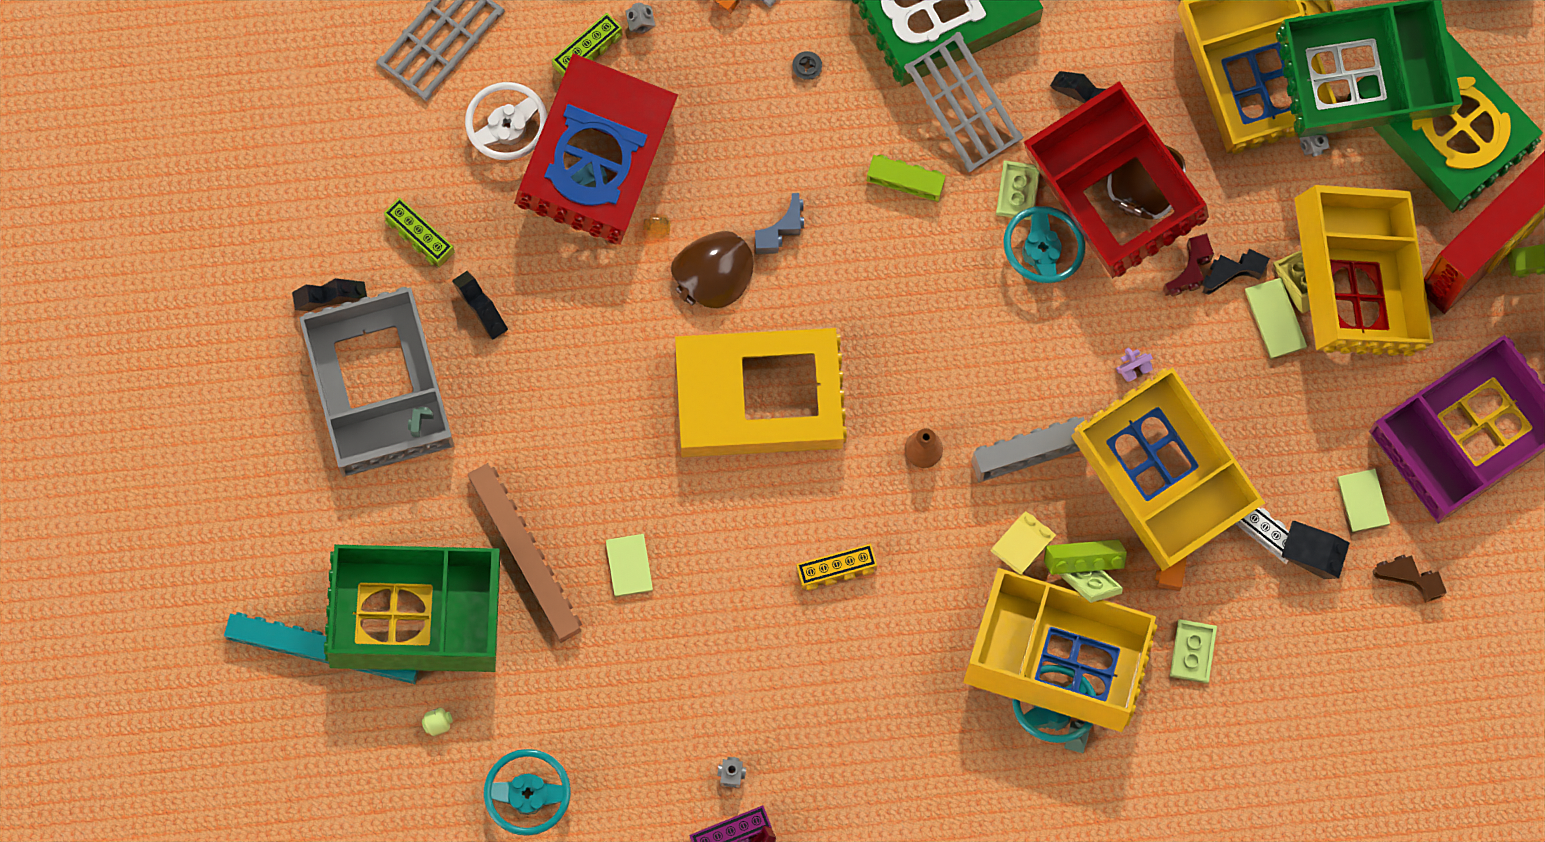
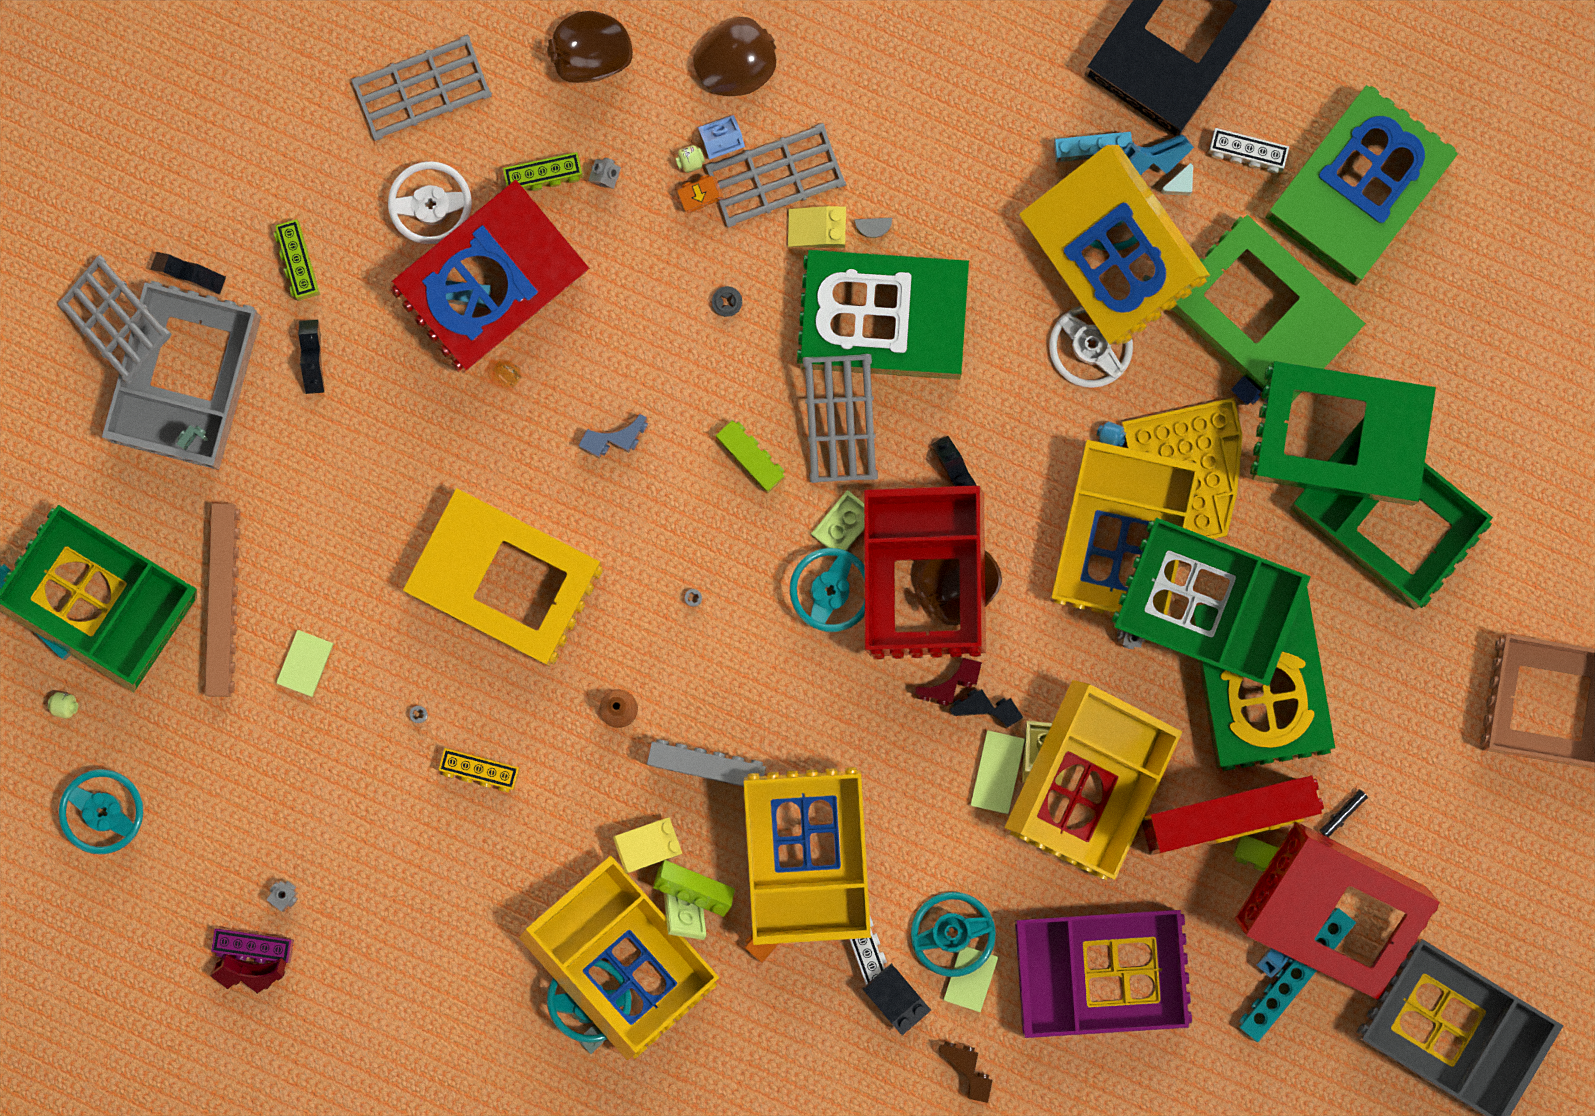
camera: 35 degrees right, 10 degrees up
(303, 376) = (97, 315): none -> light grey door
(713, 269) = (531, 442): reddish brown piece -> none
(750, 548) = (418, 708): none -> light grey bush
(931, 326) = (695, 592): none -> light grey bush
(1142, 361) = (846, 738): lavender hips -> none
(1193, 651) = (740, 1022): yellowish green tile -> none
(1318, 478) = (967, 930): none -> teal piece

